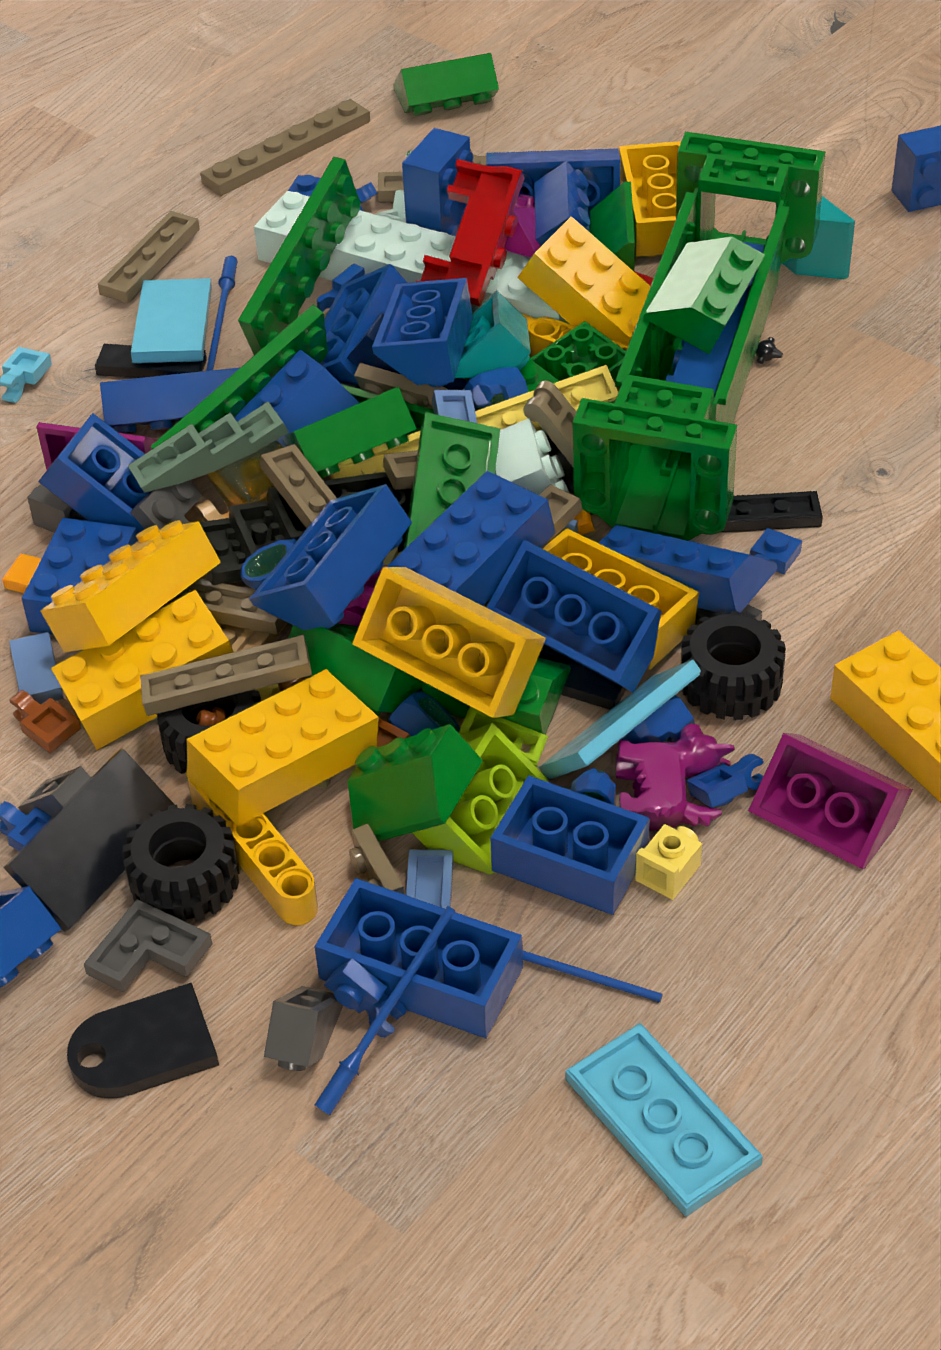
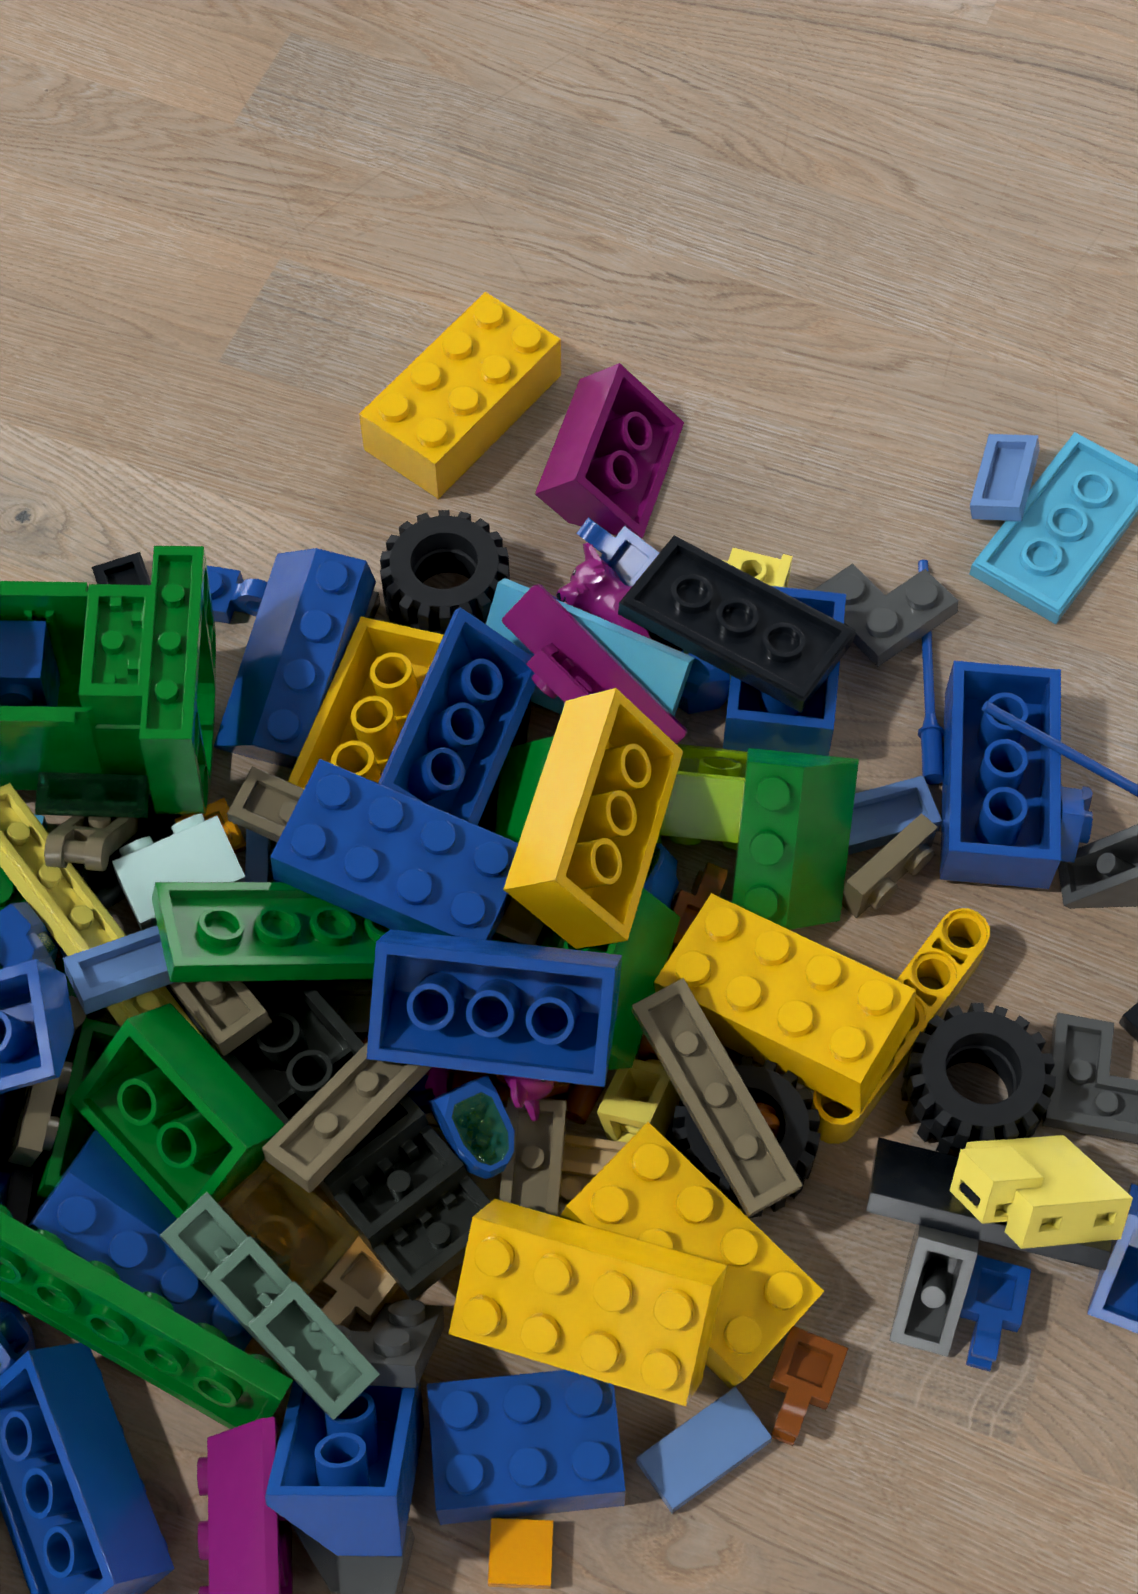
camera: 110 degrees left, 15 degrees up
(75, 842) = (1041, 1190): none -> light yellow piece
(586, 696) = (573, 663): none -> magenta bracket
(604, 794) = (737, 623): none -> black tile
(607, 939) = (892, 620): none -> dark grey plate
(724, 1077) = (1005, 477): none -> medium blue tile

